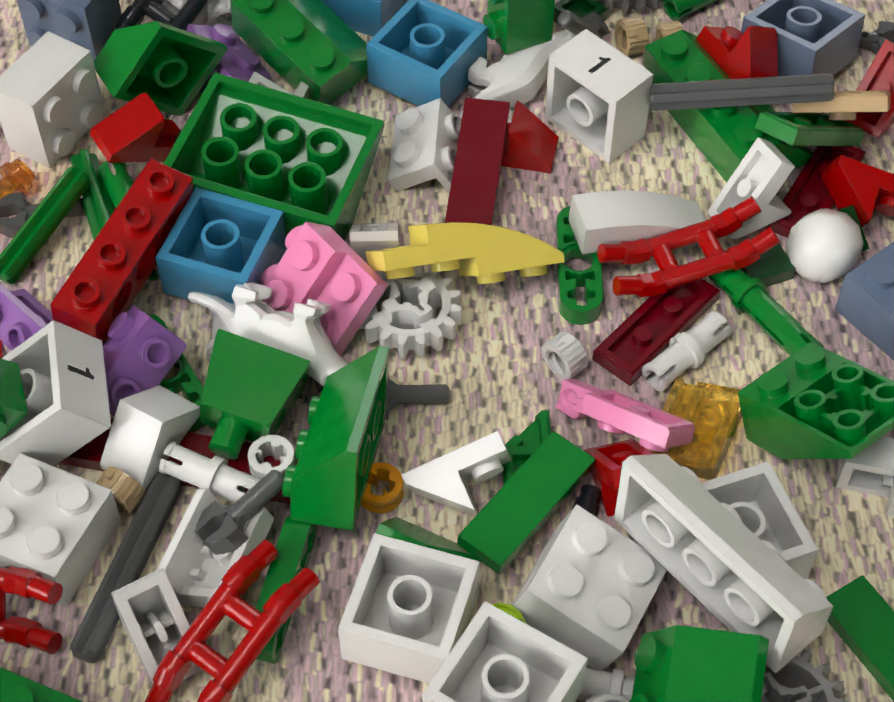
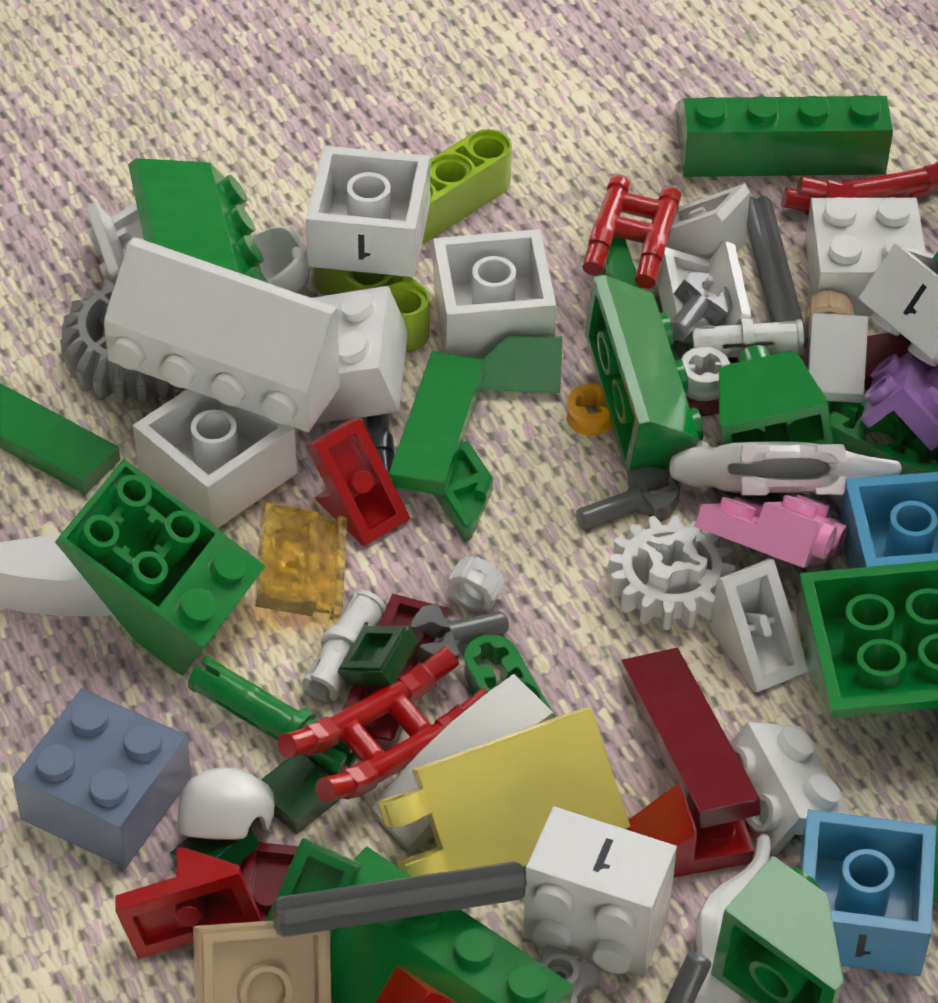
camera: 155 degrees right, 5 degrees down
(446, 476) = (518, 419): white slope -> none
(470, 248) = (640, 619): light yellow slope -> none
(619, 318) = (432, 622): none -> dark grey bar
(624, 414) = (375, 527): bright pink hinge -> none
(633, 174) = (499, 794): none -> light yellow tile
(671, 308) = (378, 655): none -> dark green tile
(758, 176) = (337, 828): white slope -> none

